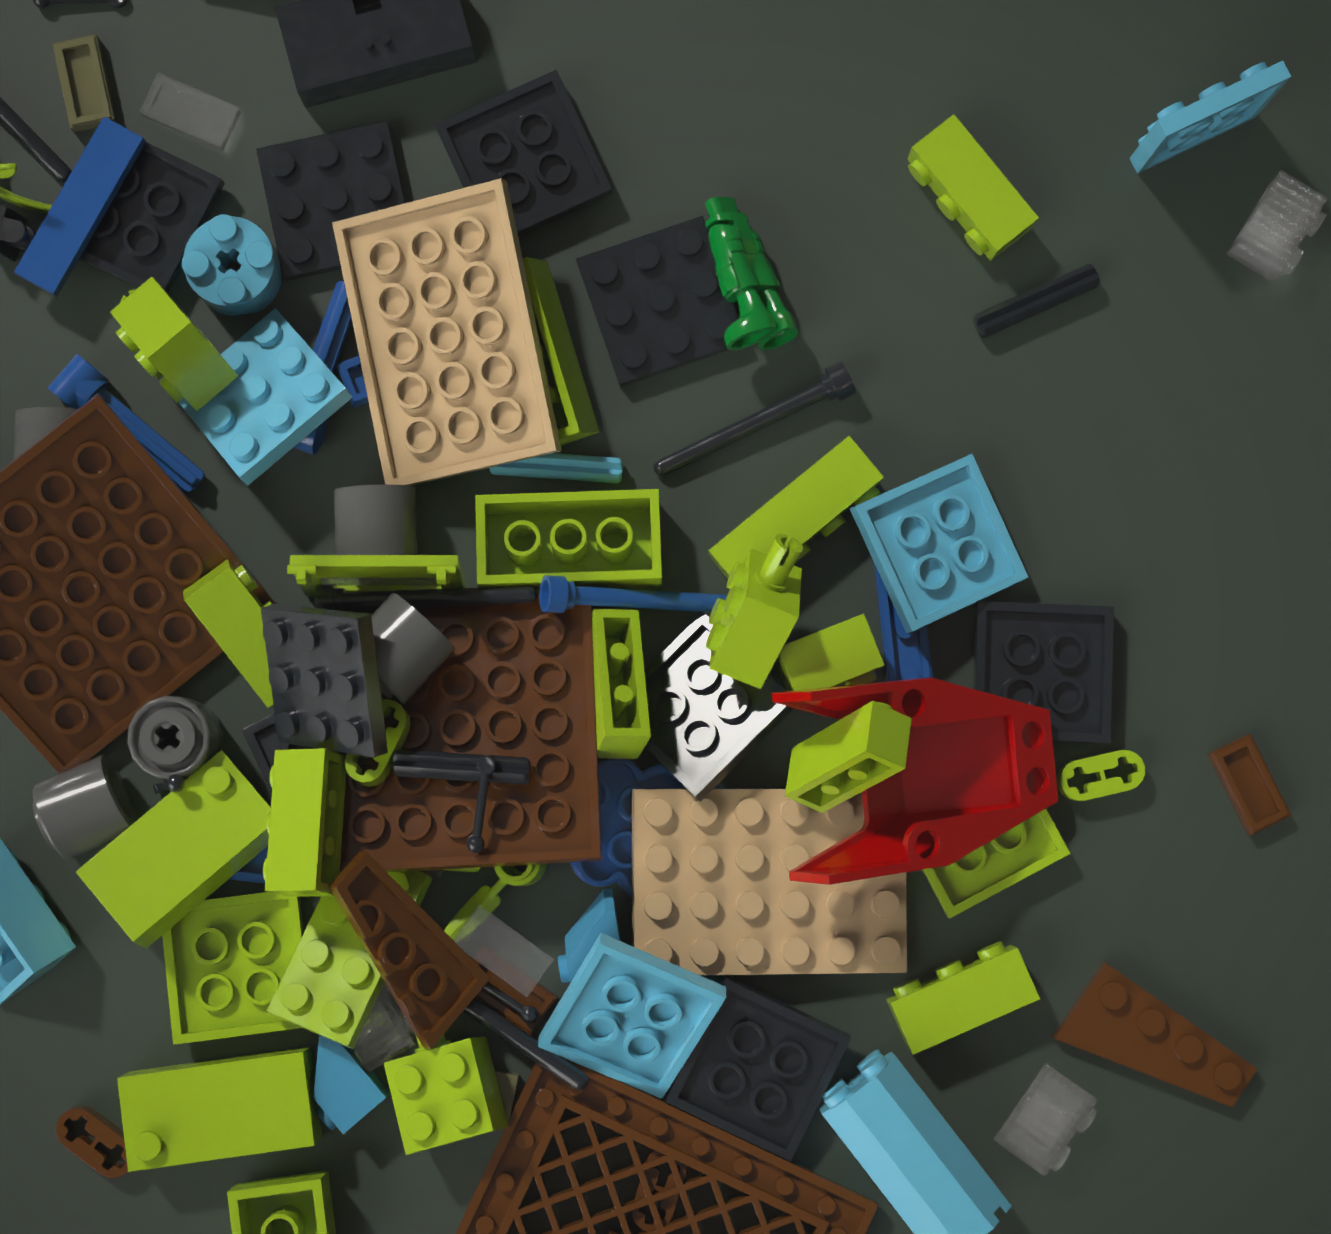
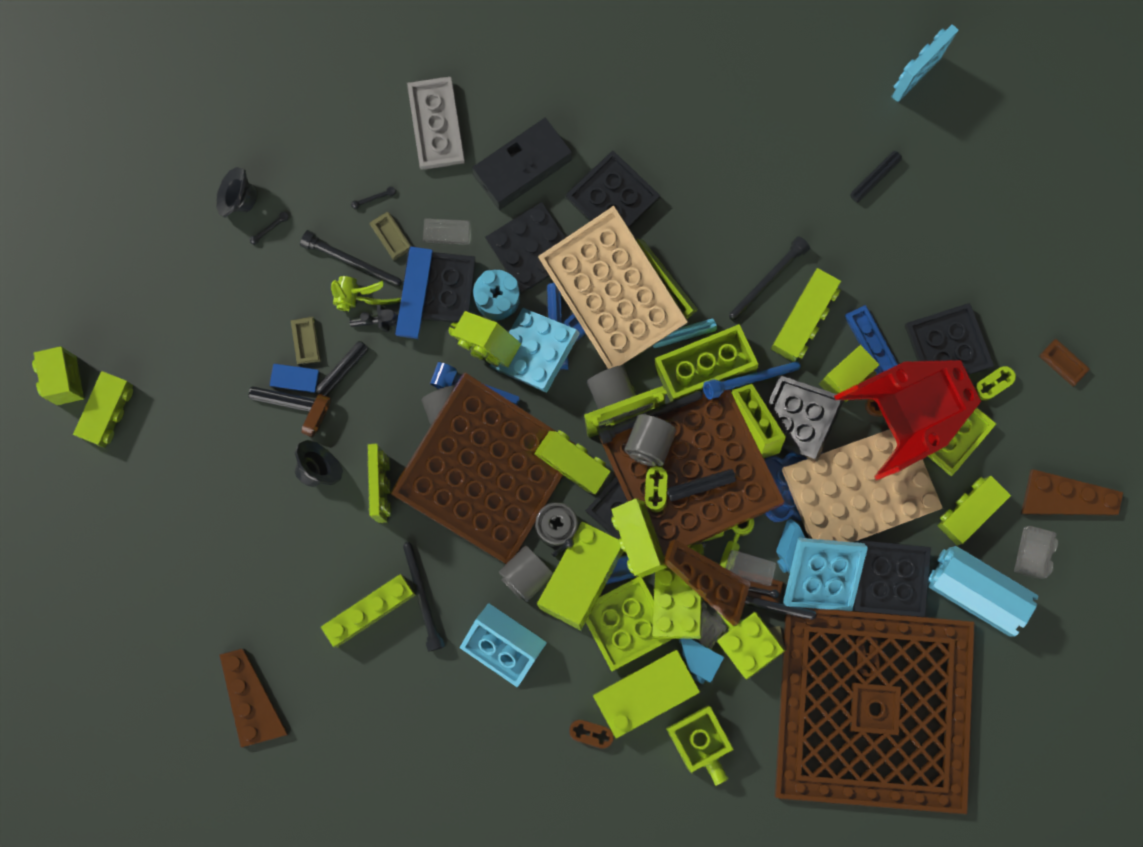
camera: 20 degrees left, 5 degrees down
(324, 679) = (622, 466): black plate -> none
(485, 765) = (723, 517): black hinge -> none
(658, 301) = (702, 239): black plate -> none
(747, 278) = (740, 213): green piece -> none
(756, 613) = (811, 362): lime brick -> none
(848, 757) = (880, 413): lime brick -> none
(939, 543) = (878, 302): medium azure plate -> none
(971, 188) = (826, 135): lime brick -> none
(1277, 227) = (973, 102): clear brick -> none

